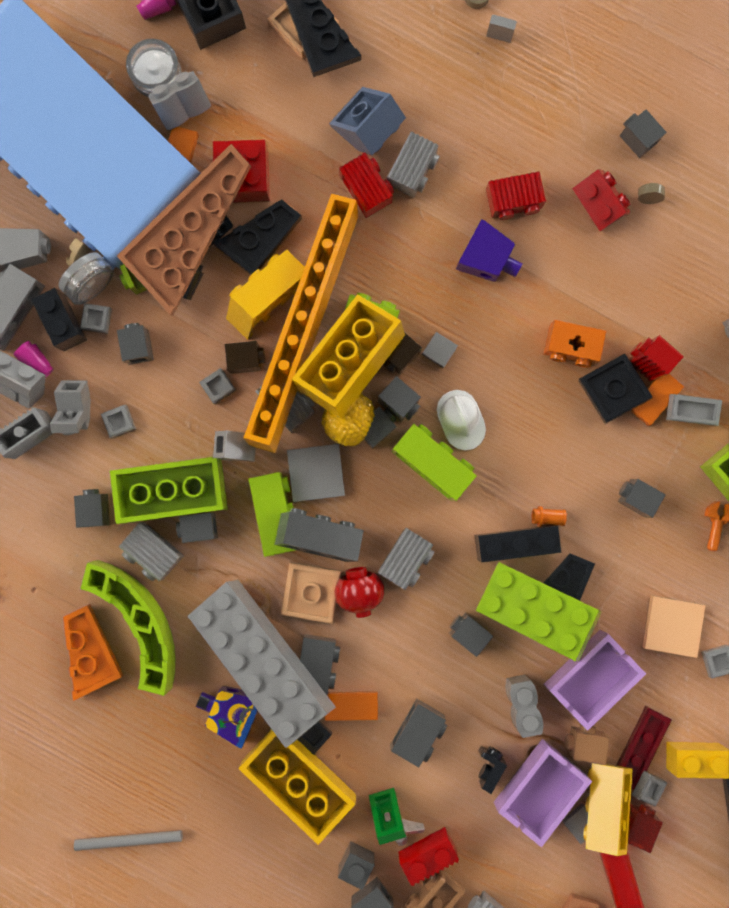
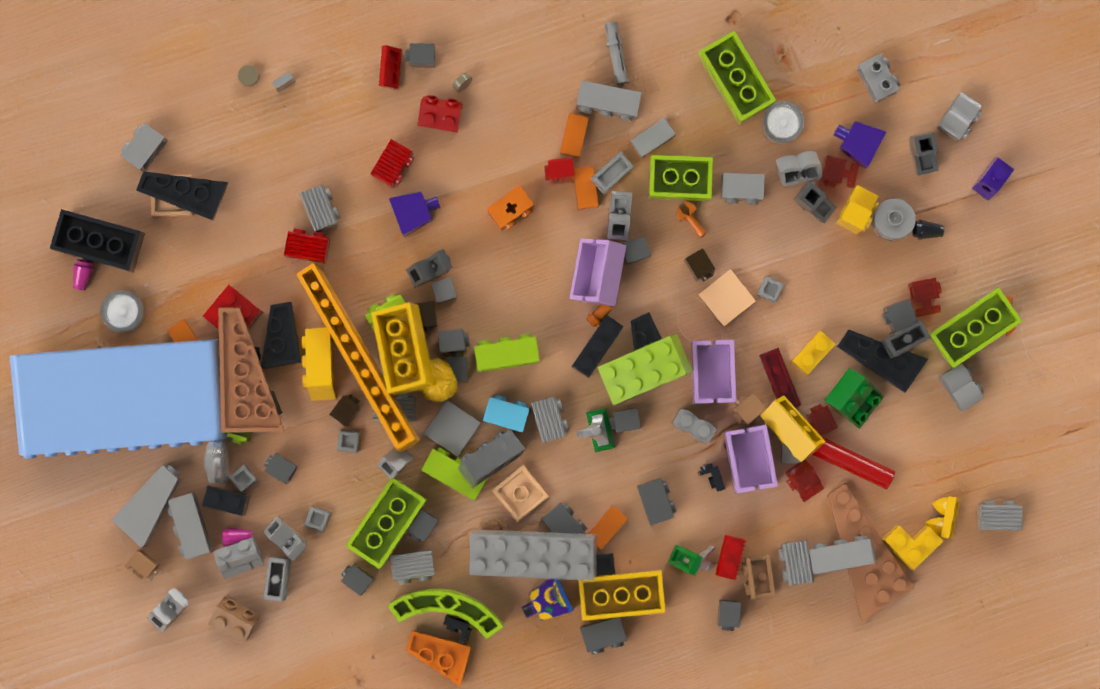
camera: 50 degrees left, 0 degrees up
(78, 250) = (193, 453): tan tile -> none
(129, 644) = (455, 624): none -> black bracket
(179, 100) = (157, 313): light grey brick -> none
(242, 798) = (603, 634): none -> dark grey brick
(356, 865) = (699, 603): dark grey brick -> none
(359, 591) = (544, 463): red plant -> none
(368, 120) = (268, 211): sand blue slope -> none
(375, 513) = (506, 414): none -> medium azure brick
(437, 615) = (598, 430): none -> piece
(448, 317) = (429, 268): none -> dark grey brick
(461, 420) = (496, 314): white piece -> none
(568, 861) = (804, 480): none -> clear red brick
(591, 480) = (597, 272): none -> lavender piece
(604, 114) = (390, 67): none -> red plate
(615, 388) = (558, 208): black tile -> none
(649, 788) = (805, 395): light grey tile -> none
(662, 452) = (619, 215): none -> light grey brick
(683, 573) = (700, 265): none -> dark brown brick
(691, 839) = (854, 398): none -> green slope
(698, 342) = (574, 135): none -> orange tile

